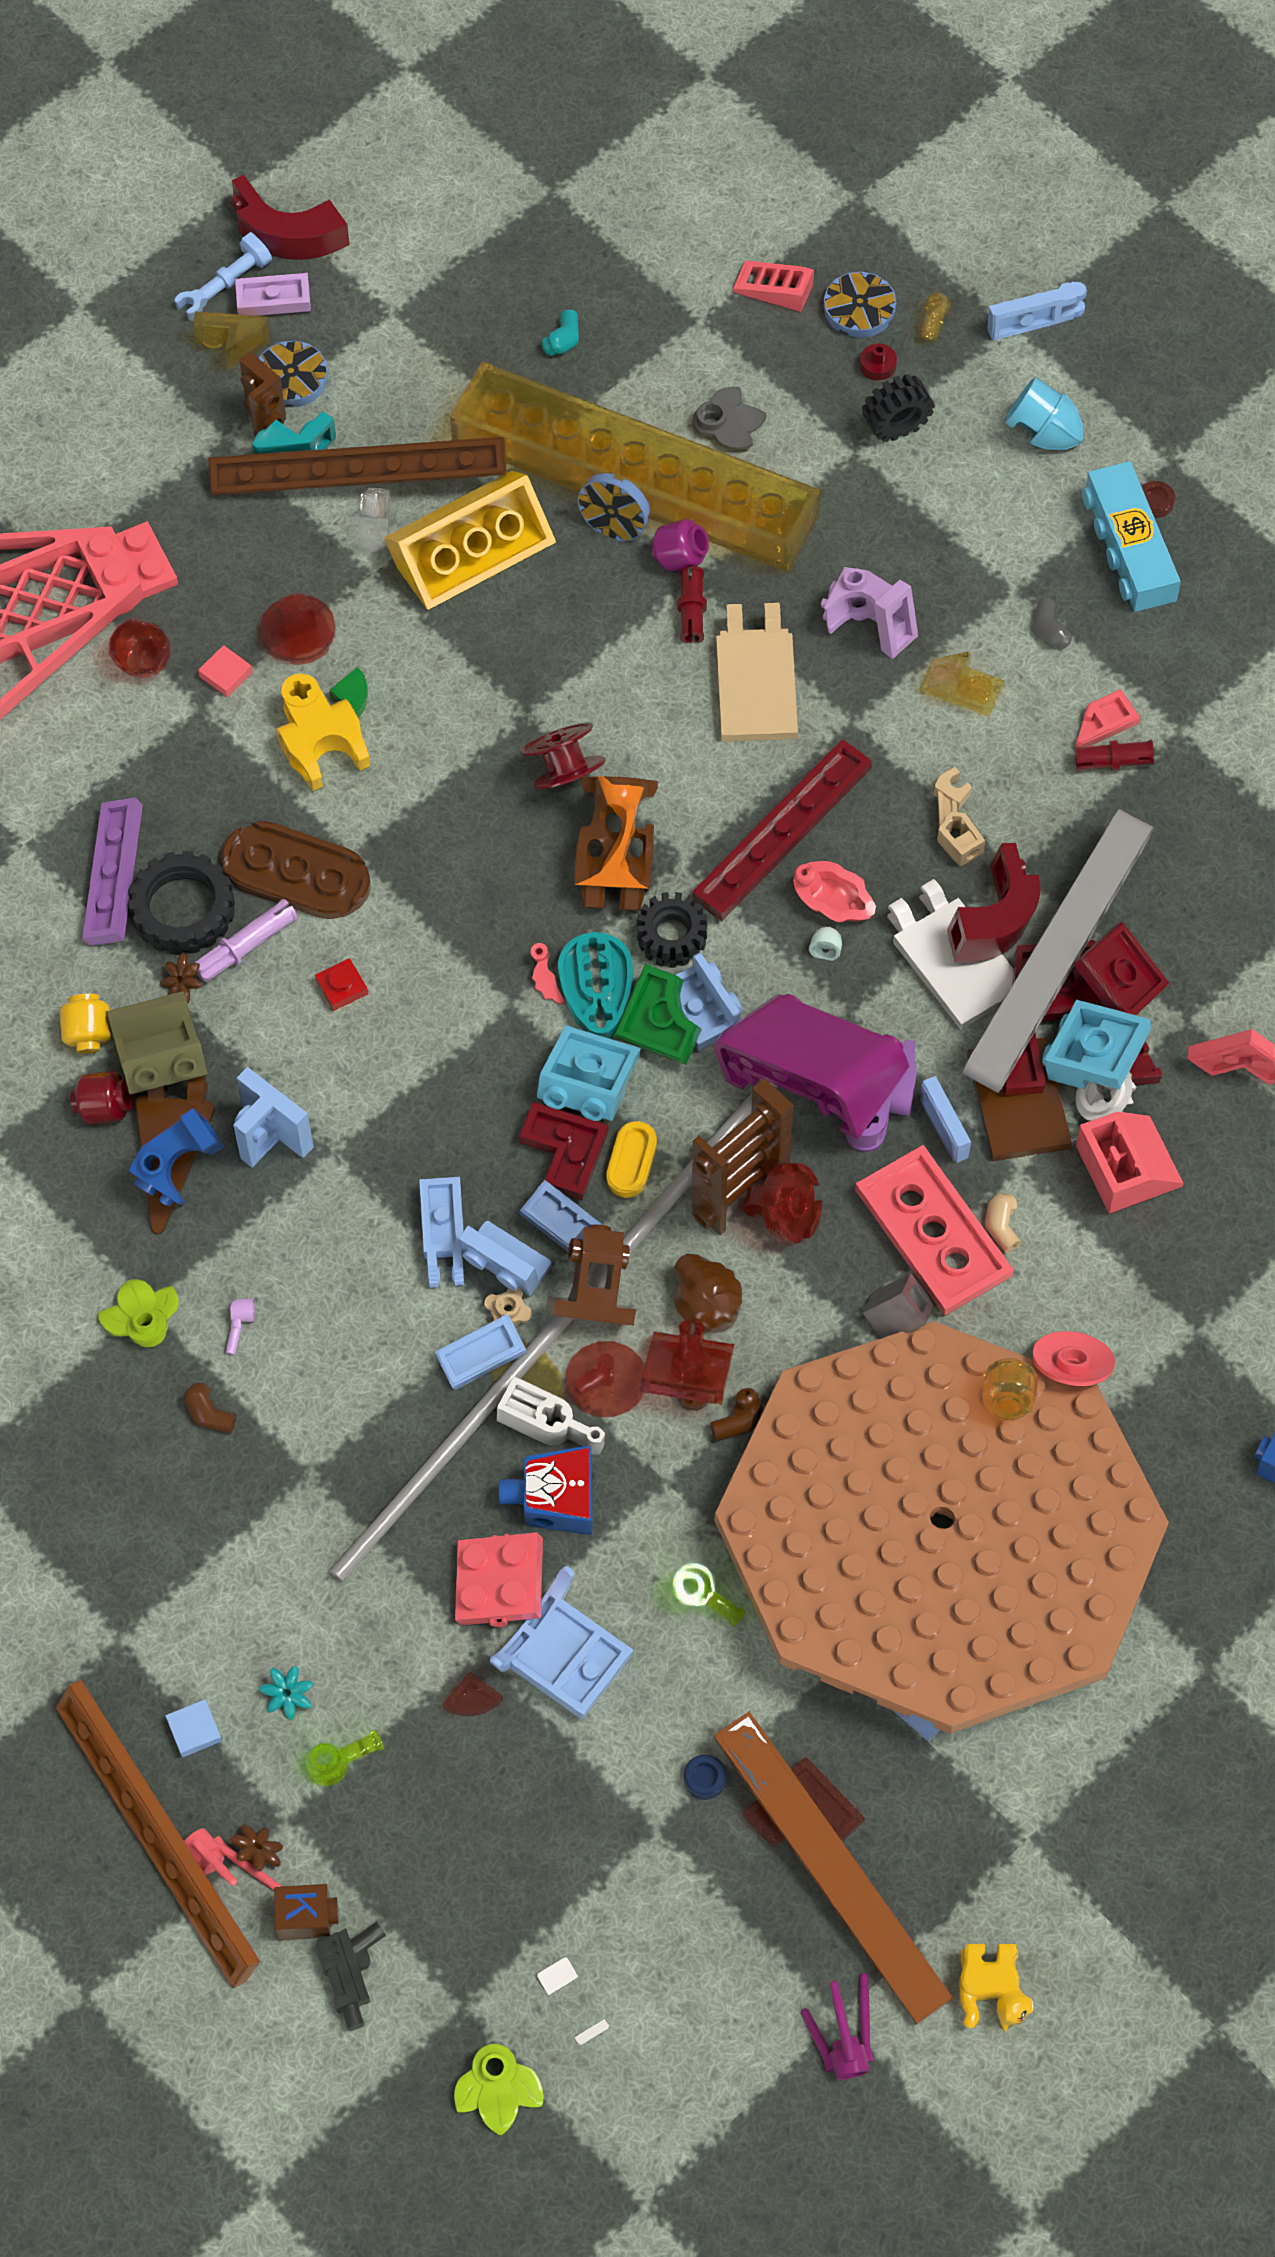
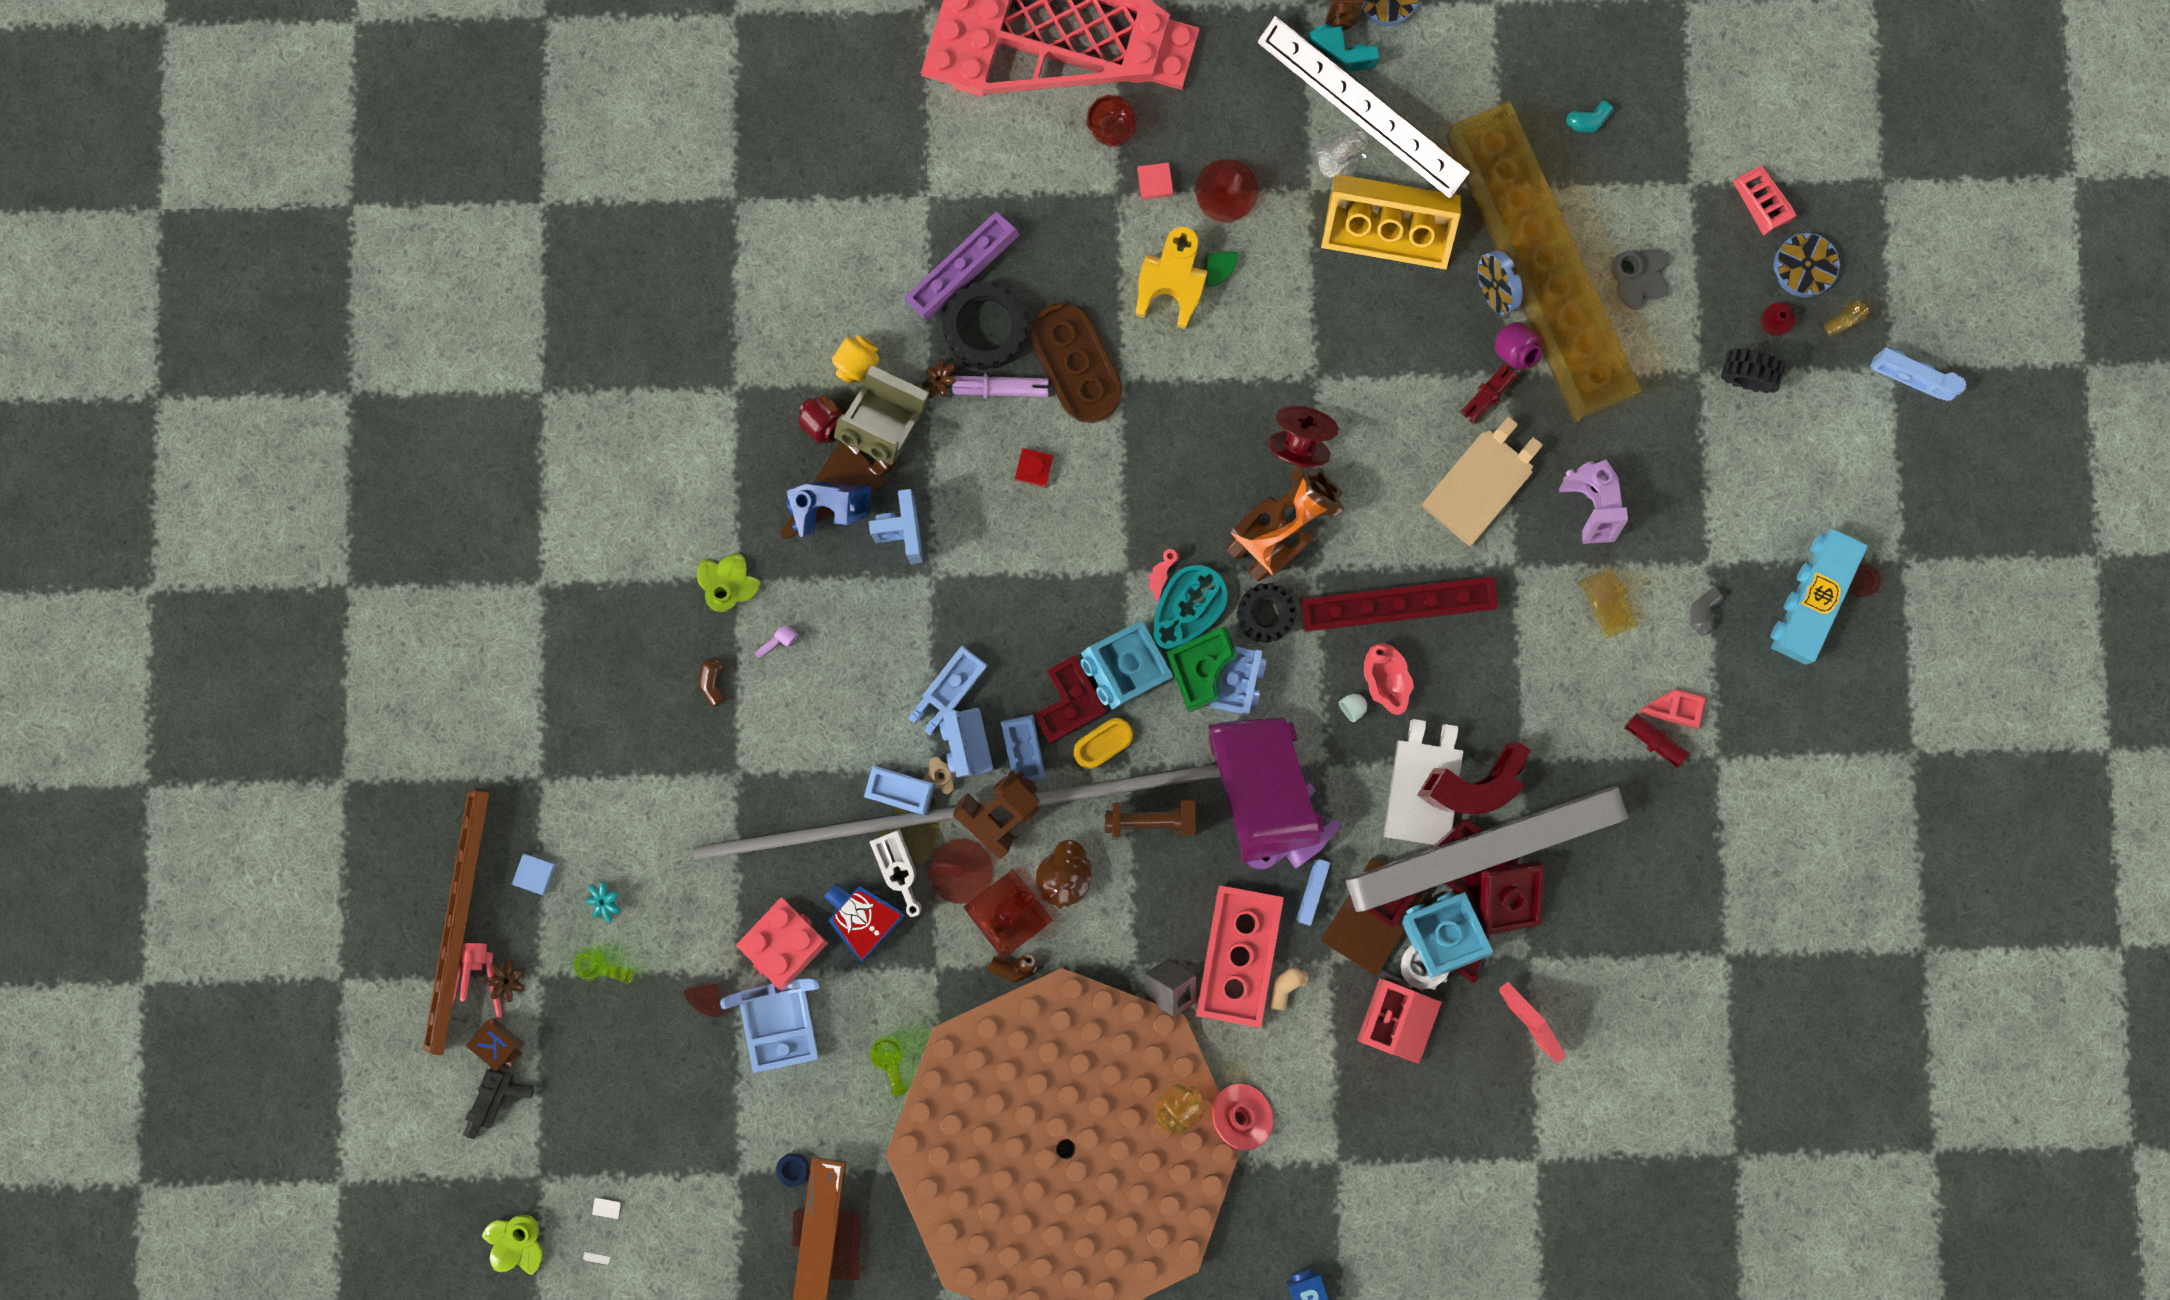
camera: 40 degrees right, 20 degrees up
(786, 1203) = (1163, 864): clear red tile -> none
(951, 799) = (1520, 678): tan piece -> none
(1047, 415) = (1846, 460): medium azure helmet -> none

